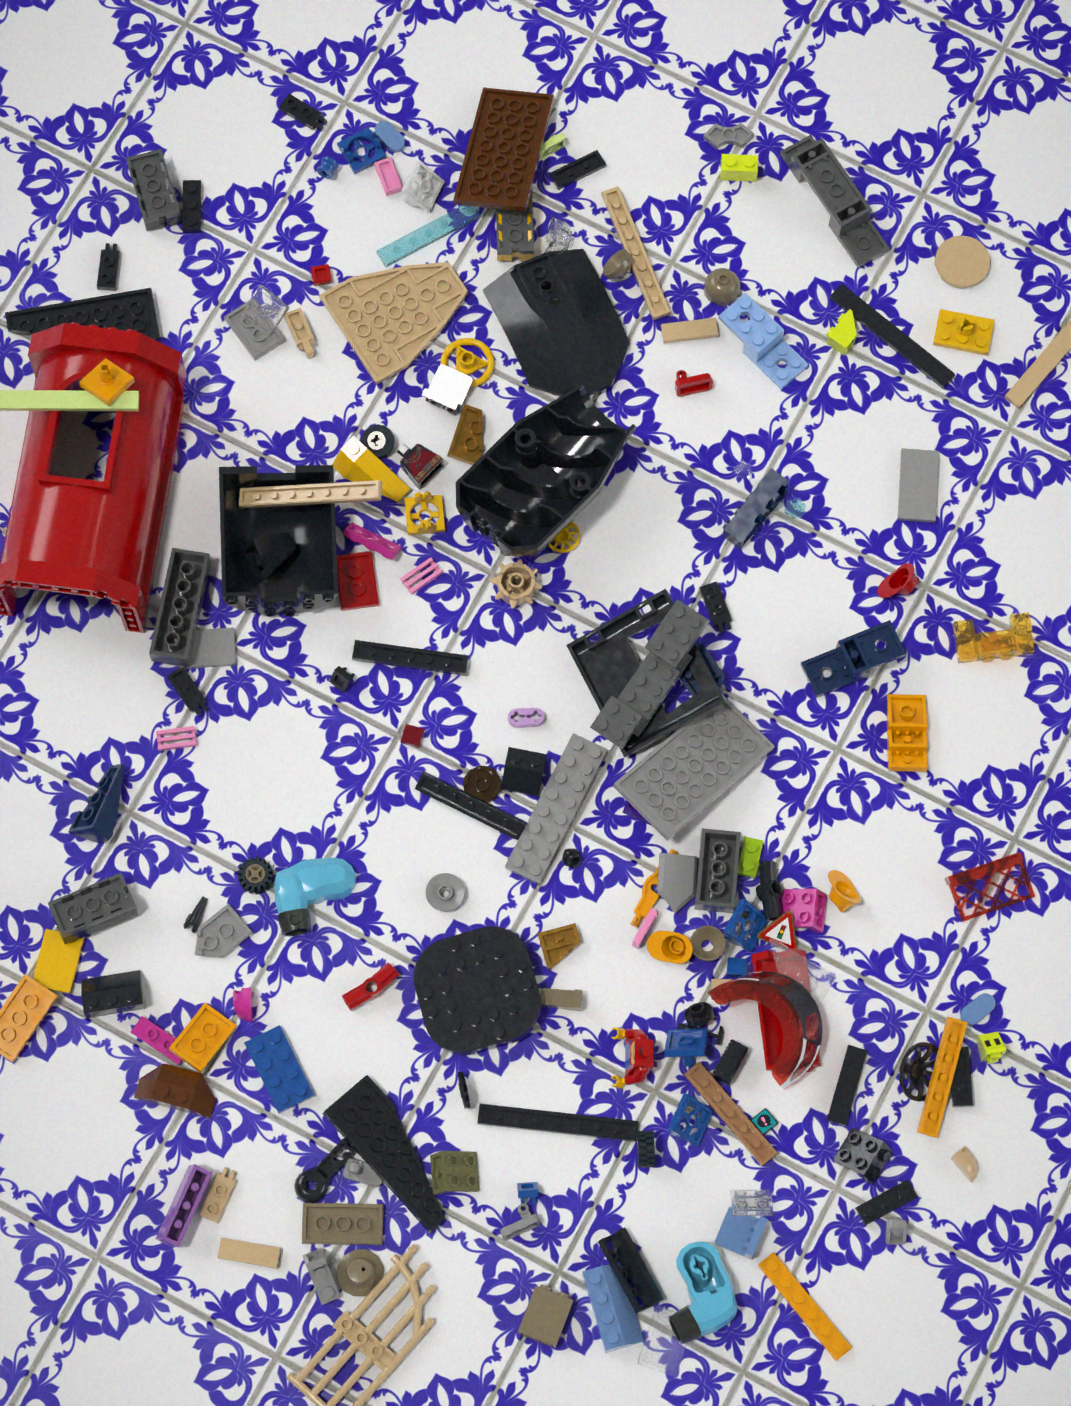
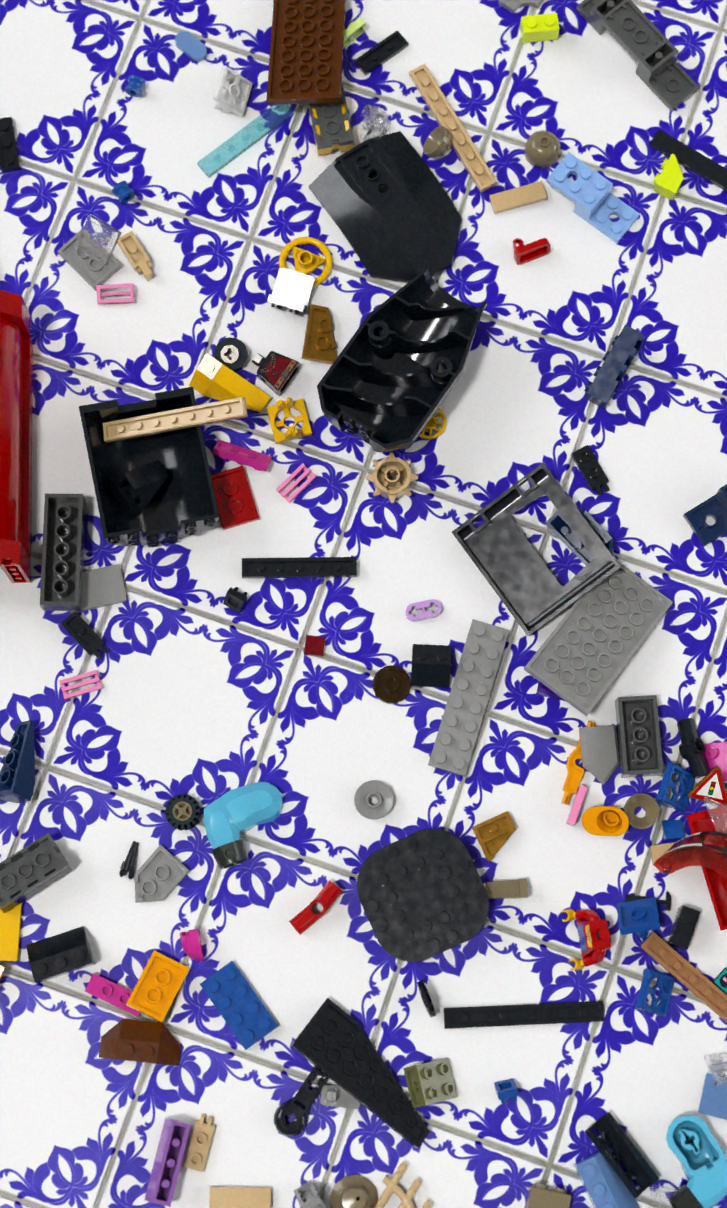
camera: 10 degrees left, 5 degrees up
(258, 364) = (107, 286): none -> bright pink tile
(298, 269) = (123, 192): none -> blue wheel
(302, 112) = (101, 34): black hinge -> none
(321, 275) = (146, 195): red tile -> none
(342, 1224) = (328, 1152): dark tan tile -> none
(364, 134) = (164, 81): blue piece -> none
(388, 176) = (196, 86): bright pink tile -> none
(394, 313) = (225, 223): tan piece -> none
(471, 805) = (384, 707): black tile -> none
(526, 1224) = (512, 1122): light grey piece -> none
(571, 857) = (492, 745): black plate -> none
(645, 1149) = (616, 1029): black wheel -> none
(654, 677) = (546, 552): dark grey bracket -> none
(699, 1014) = (644, 884): black plate -> none
(743, 470) = (594, 329): clear plate -> none
(749, 857) = (667, 716): lime plate -> none
(795, 503) = (651, 355): clear light blue plant -> none

